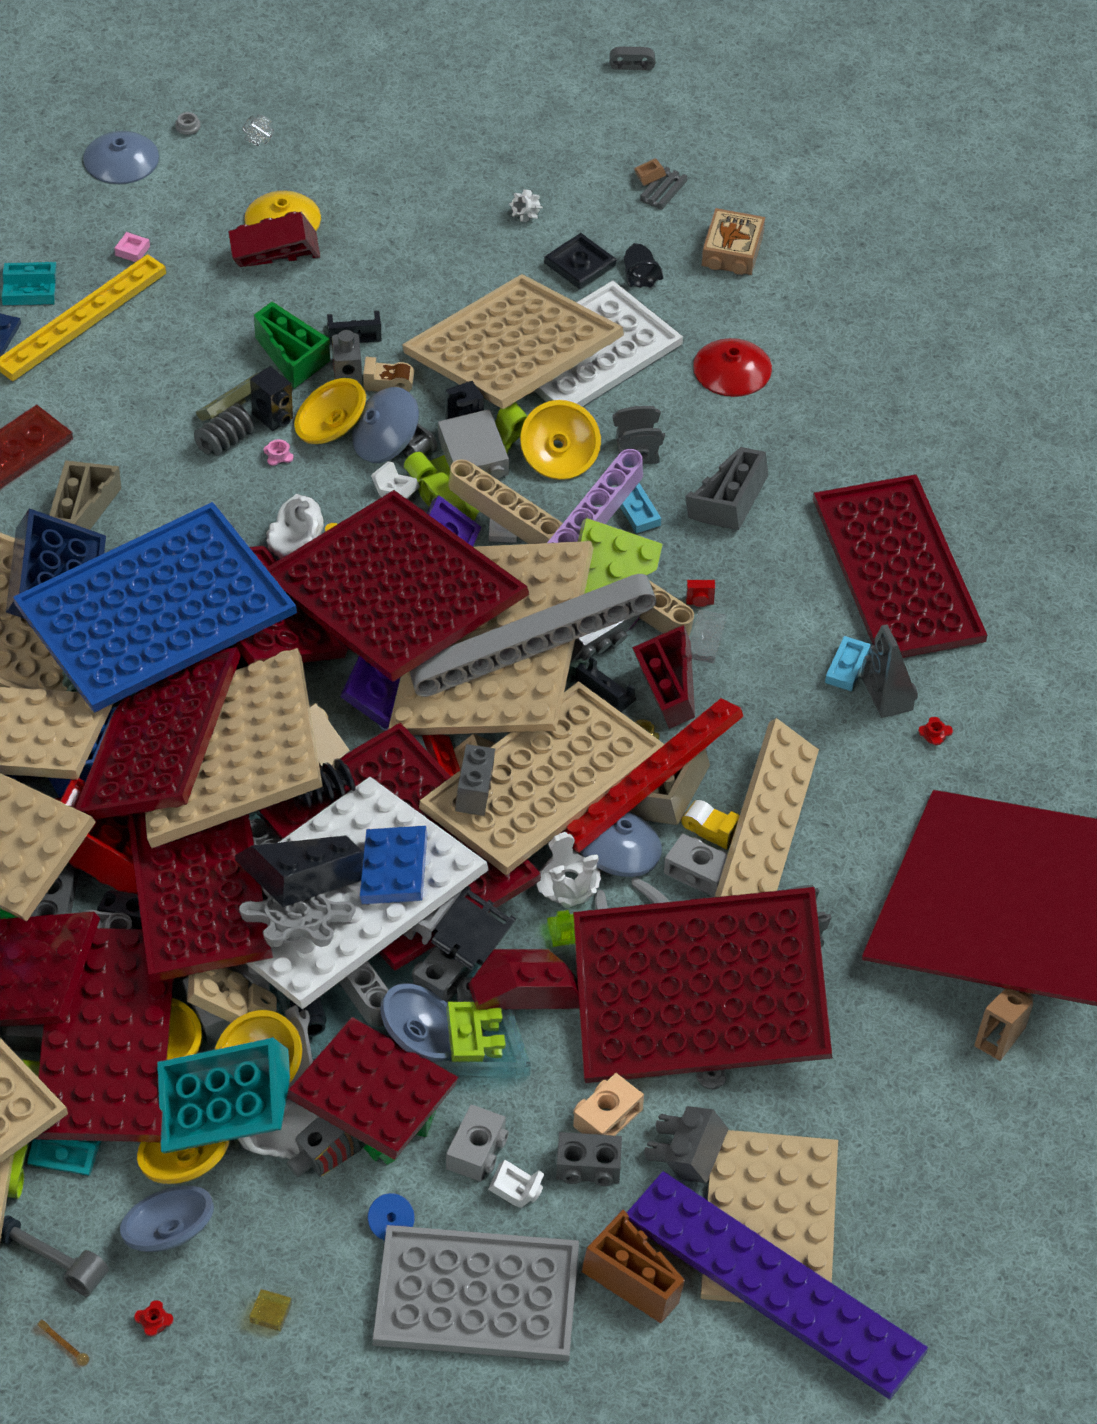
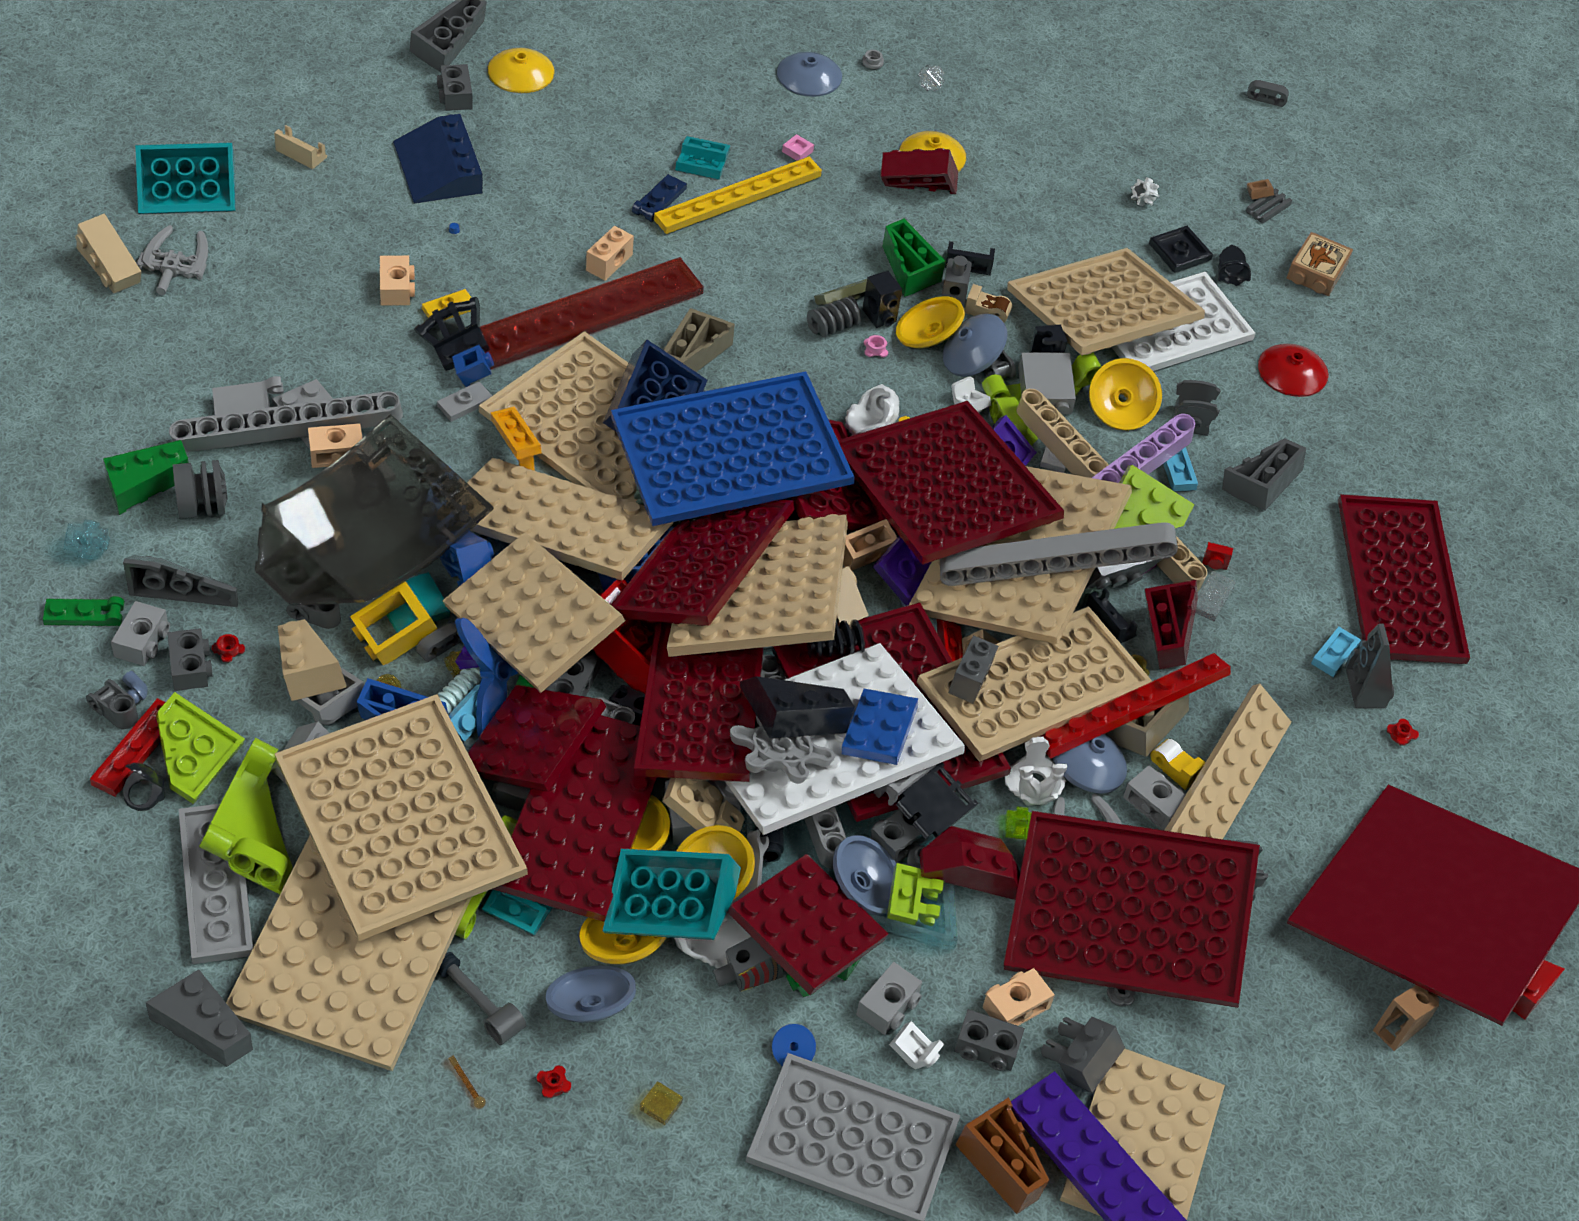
camera: 10 degrees right, 0 degrees up
(329, 673) = (868, 544): none -> light nougat brick

